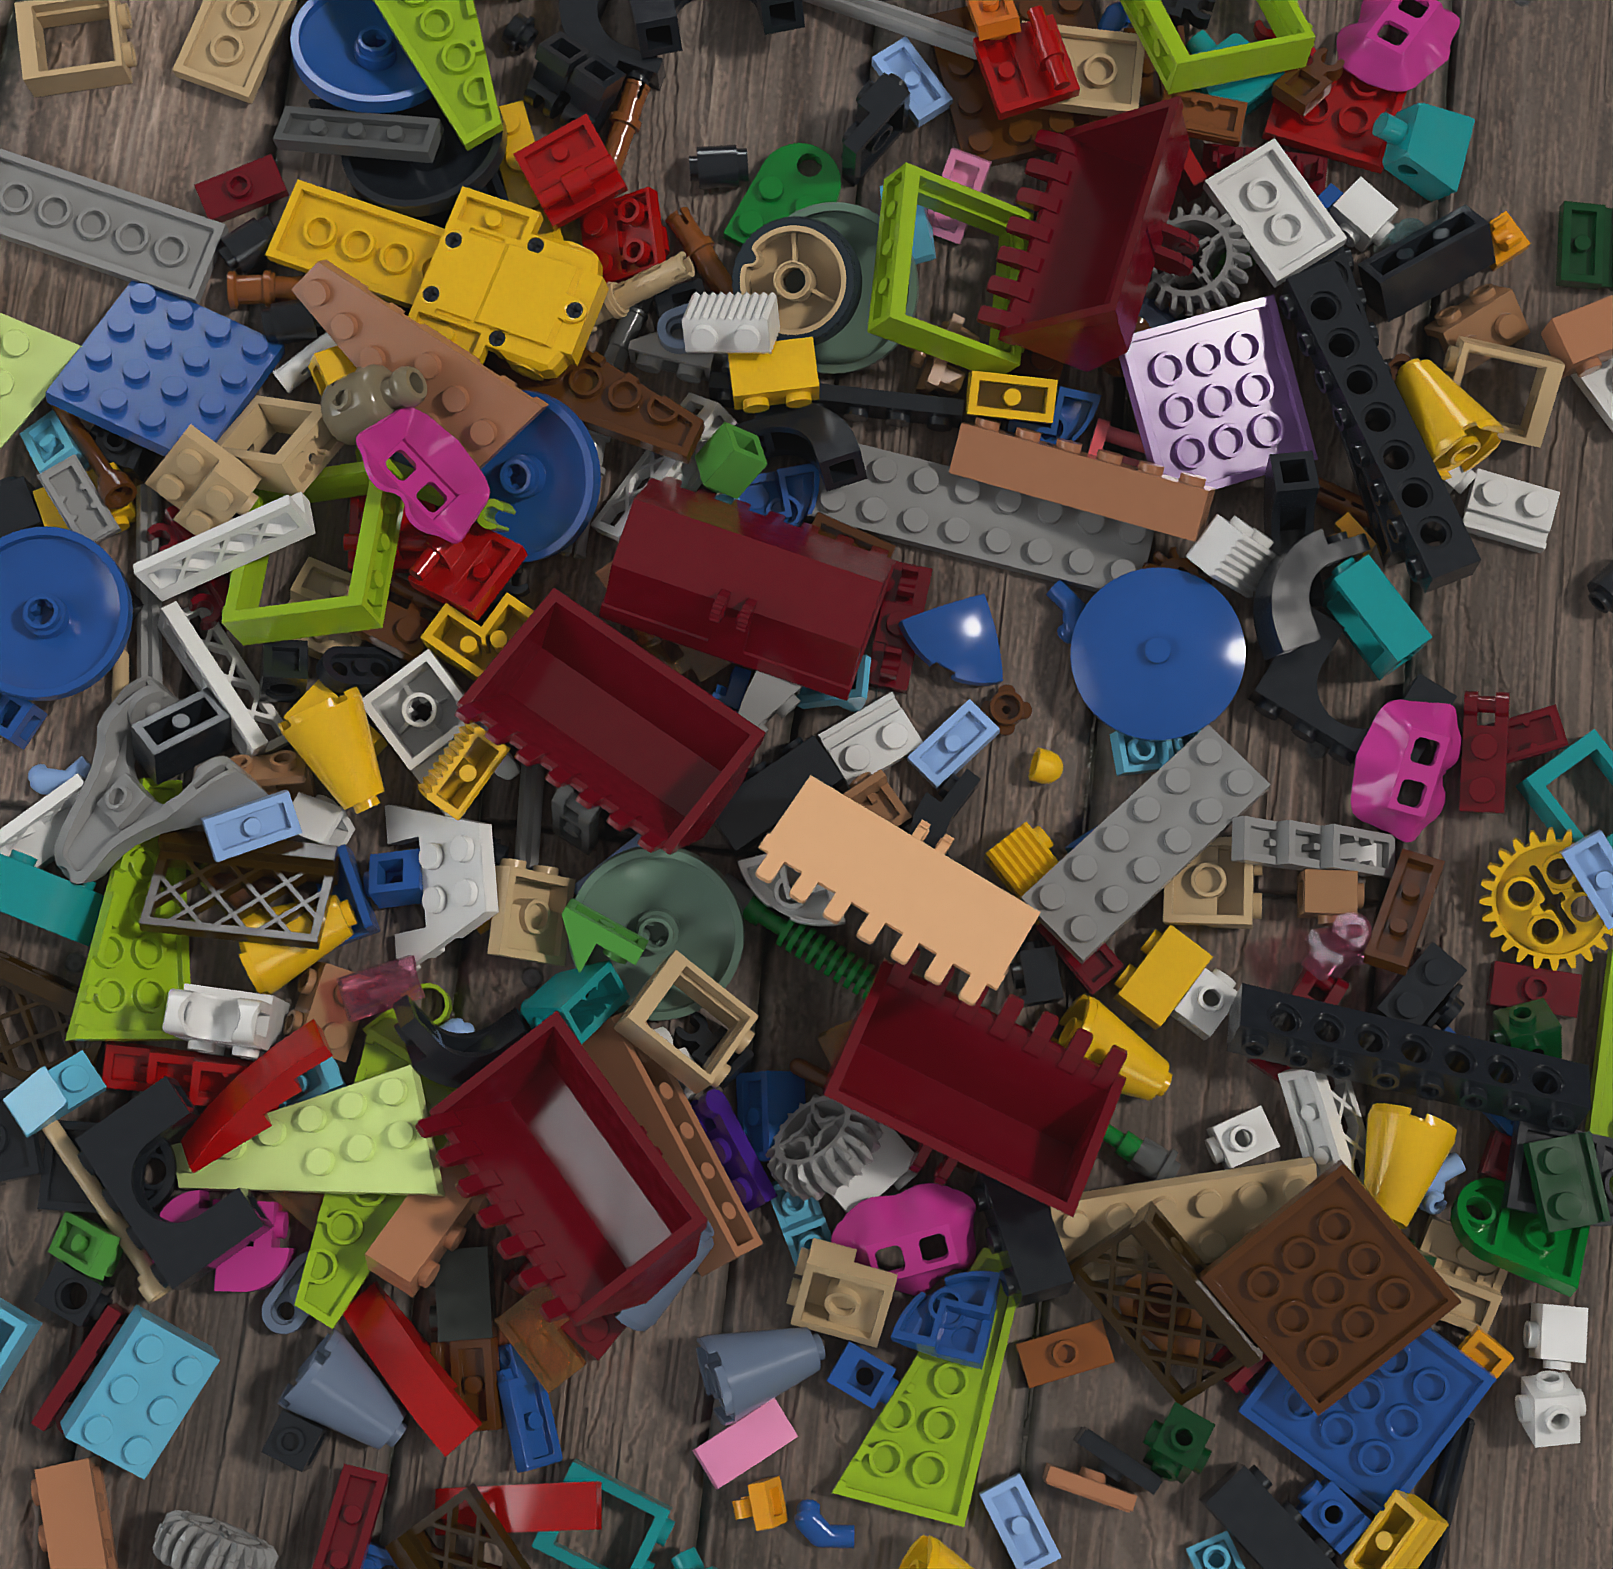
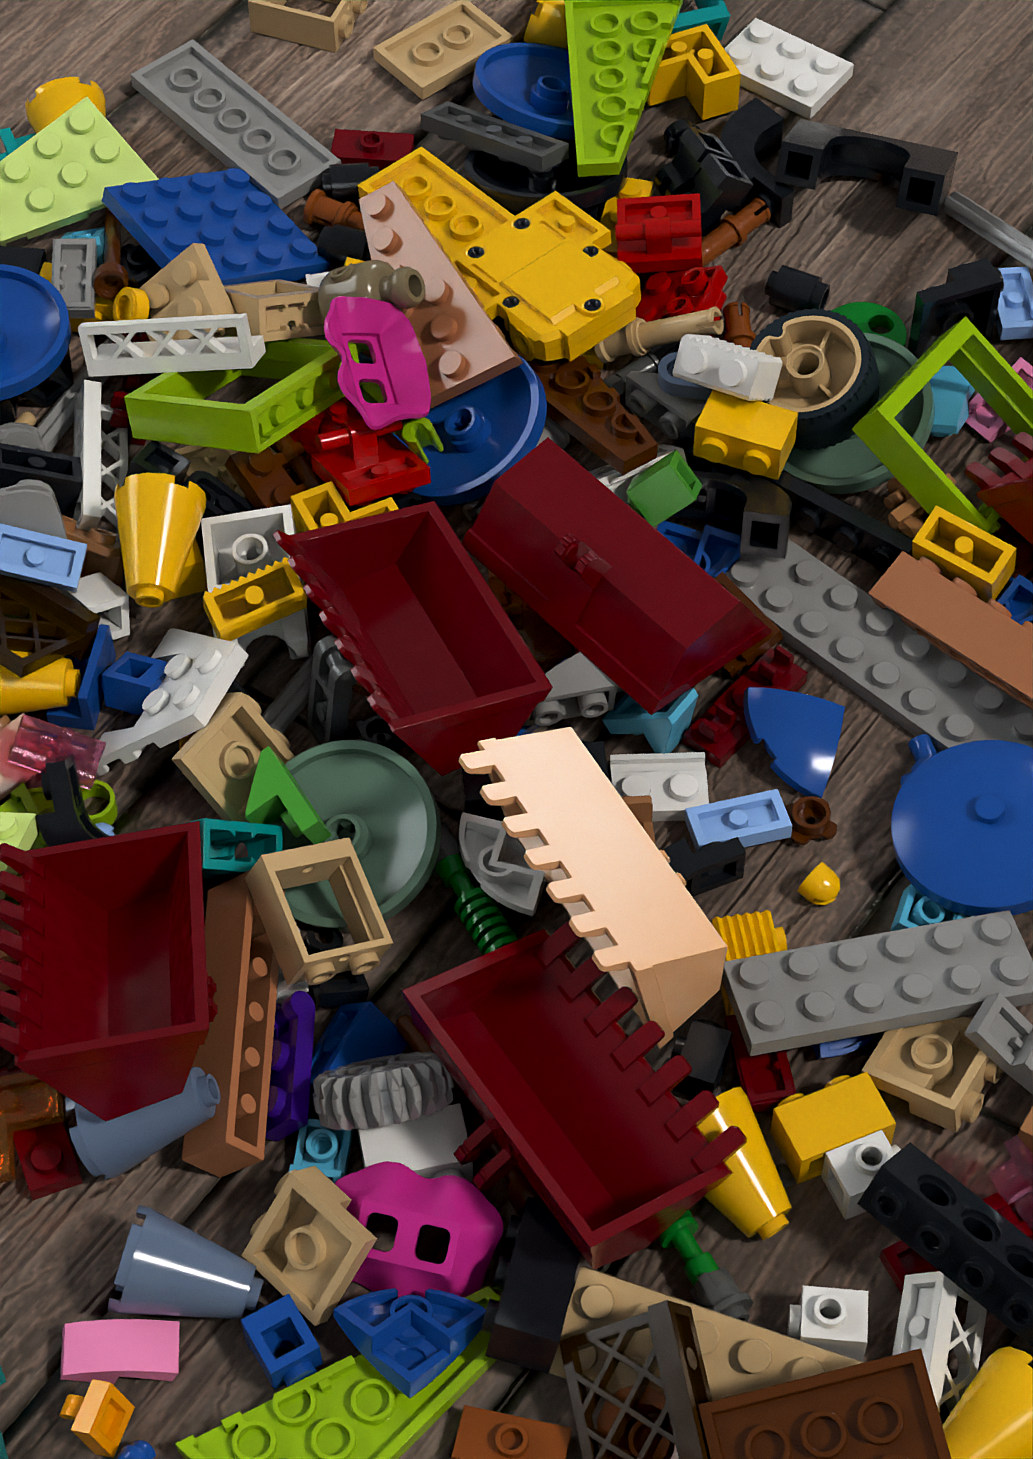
camera: 30 degrees right, 25 degrees down
(152, 508) = (131, 304): none -> yellow tile

